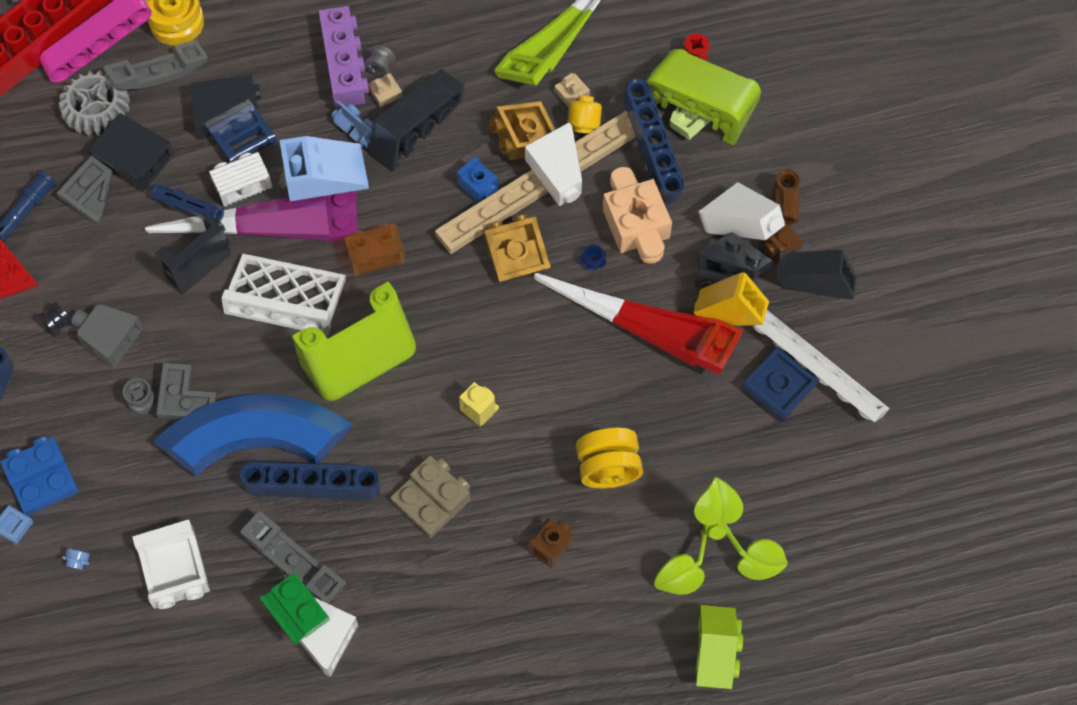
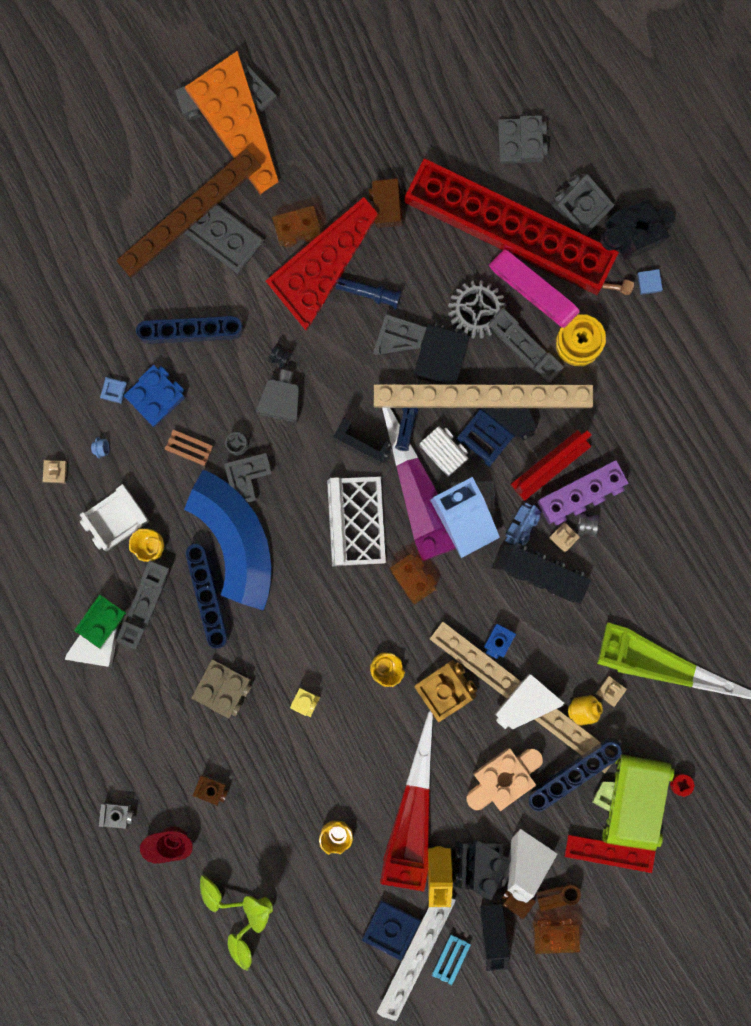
camera: 75 degrees right, 20 degrees up
(83, 625) = (54, 471): none -> tan tile
(124, 438) = (171, 441): none -> nougat tile
(192, 118) = (483, 396): none -> tan plate
(219, 532) = (146, 544): none -> yellow hair
(298, 76) = (551, 464): none -> red fence
(359, 351) = (334, 618): lime windscreen -> none
(470, 303) = (387, 669): none -> yellow hair
(519, 126) = (557, 664): pearl gold plate -> none
(544, 676) = (107, 811): none -> light grey brick
(598, 253) = (452, 754): clear blue plate -> none
(606, 609) = (166, 846): none -> dark red piece
(609, 458) = (281, 817): yellow wheel -> none
(651, 412) = (335, 837): none -> yellow hair
(717, 647) = (163, 935): lime brick -> none
(751, 137) = (609, 854): none -> red plate
(832, 213) = (556, 937): none -> clear orange brick
(849, 336) = (461, 958): none -> medium azure tile

